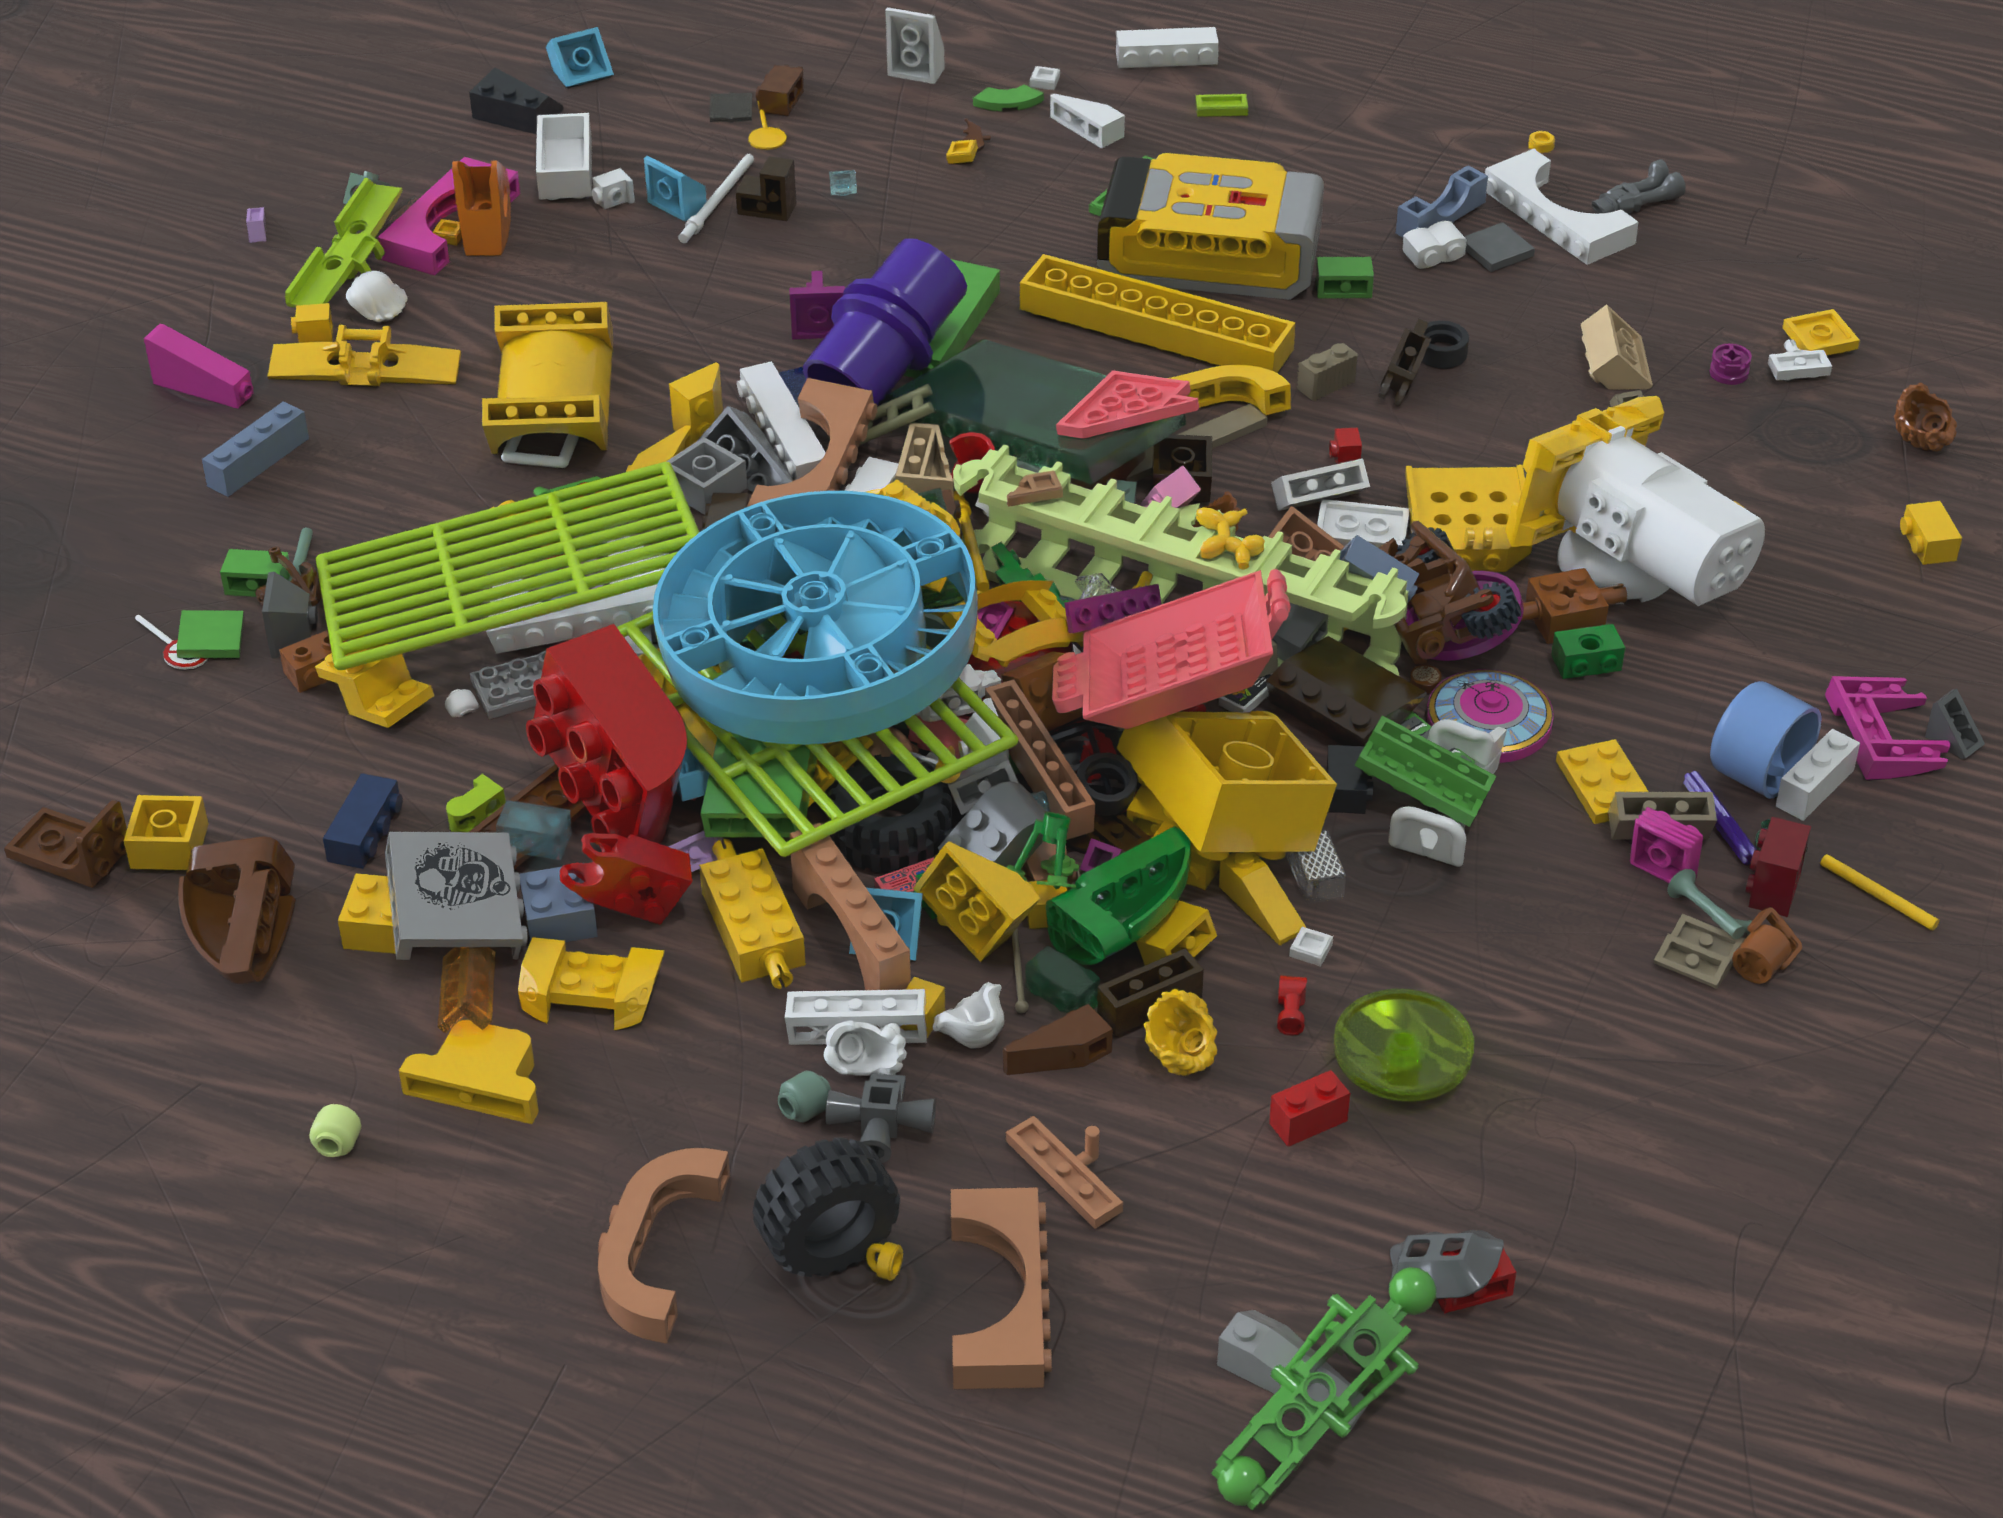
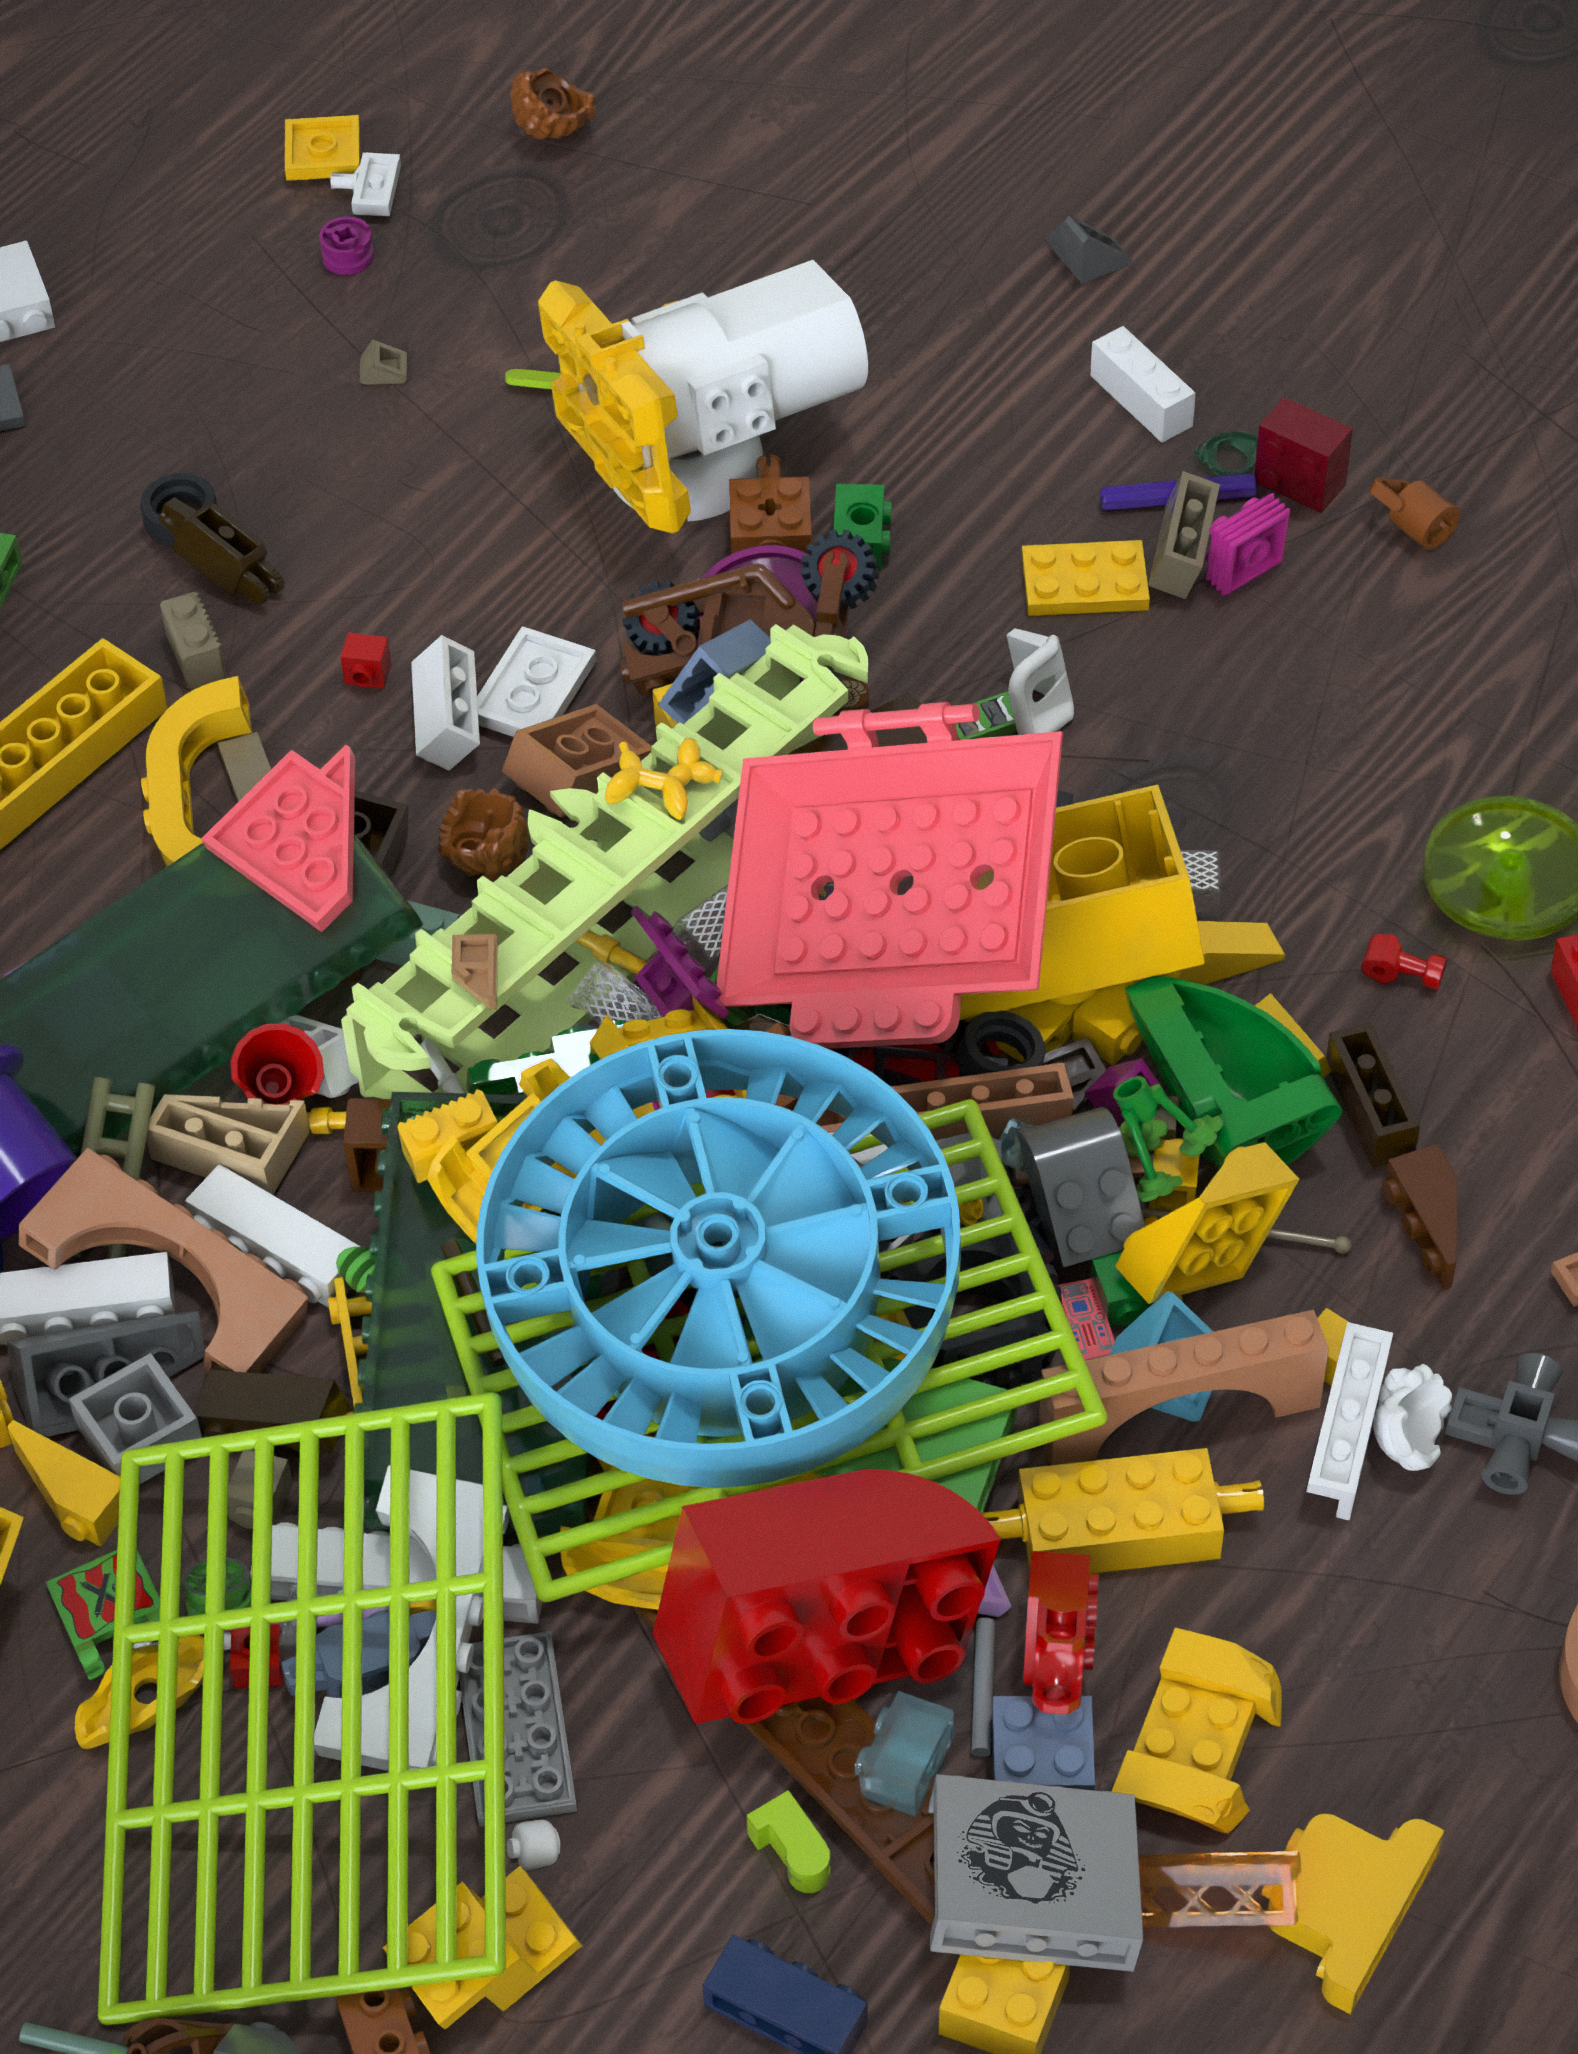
camera: 75 degrees left, 10 degrees up
(803, 1096) = (1475, 1506): sand green head -> none
(974, 1019) = (1374, 1285): white hair -> none
(1012, 542) = (447, 1079): none -> white piece
(1061, 981) = (1334, 1183): clear green brick -> none
(1178, 486) = (468, 848): bright pink brick -> none
(1181, 1032) = (1455, 1095): yellow hair -> none
(1311, 946) = (1301, 926): white tile -> none
(1425, 771) = (1081, 708): bright green brick -> none
(1428, 835) = (1146, 759): white piece -> none
(1471, 509) = (556, 567): yellow hinge -> none
(1492, 700) = (936, 648): dish -> none
(1615, 352) = (276, 347): tan slope -> none
(1683, 885) = (1366, 528): sand green piece -> none
(1698, 951) = (1393, 572): dark tan slope -> none
(1763, 737) = (1107, 399): medium blue piece -> none
(1879, 755) = (1016, 315): dark pink wedge -> none
(1880, 892) = (1351, 385): yellow bar -> none
(1931, 532) = (747, 165): yellow brick -> none

